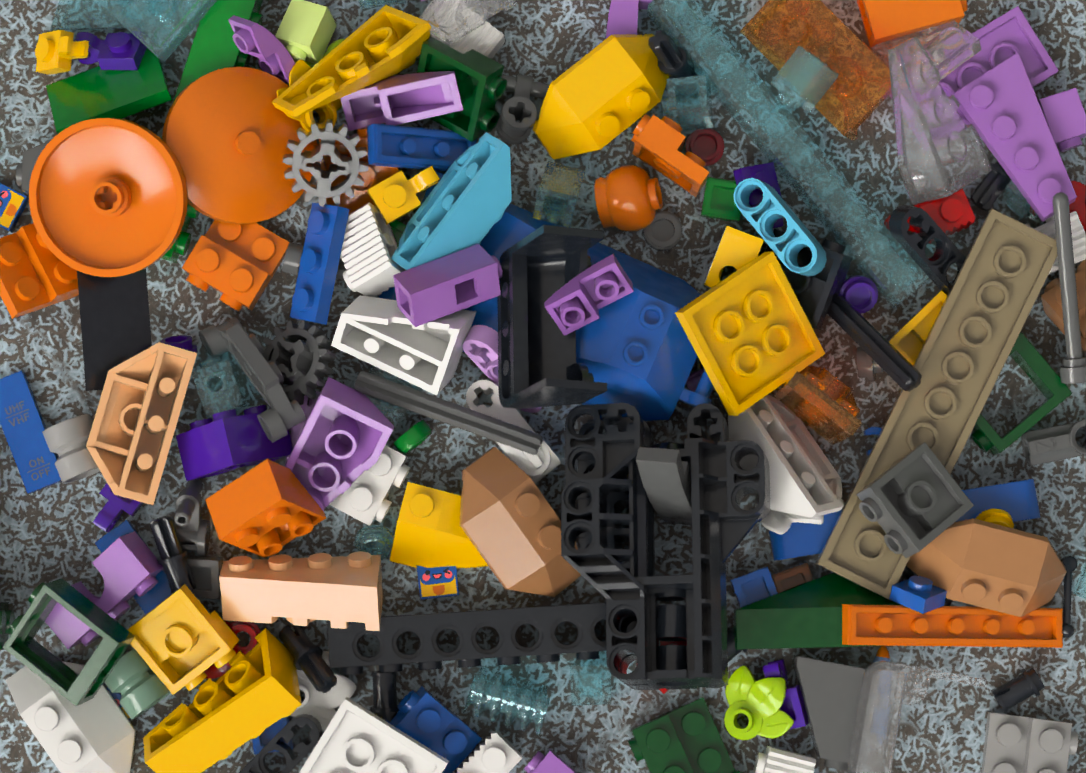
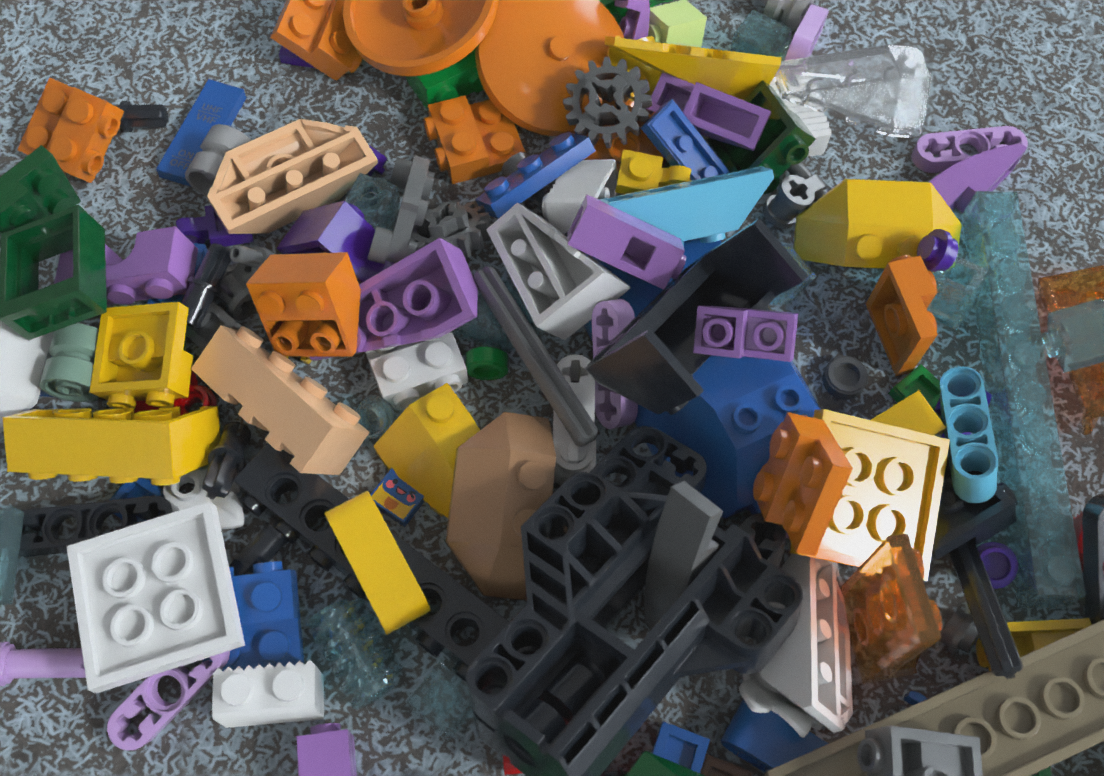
camera: 40 degrees right, 20 degrees down
(112, 322) = (348, 95): black sticker -> none
(477, 641) = (377, 562): none -> yellow beam
(627, 198) = (836, 321): orange piece -> none
(660, 96) = (938, 250): none -> plate
(671, 59) = (966, 231): black axle -> none
(705, 376) = (802, 480): none -> orange plate
(706, 145) = (944, 344): dark red plate -> none

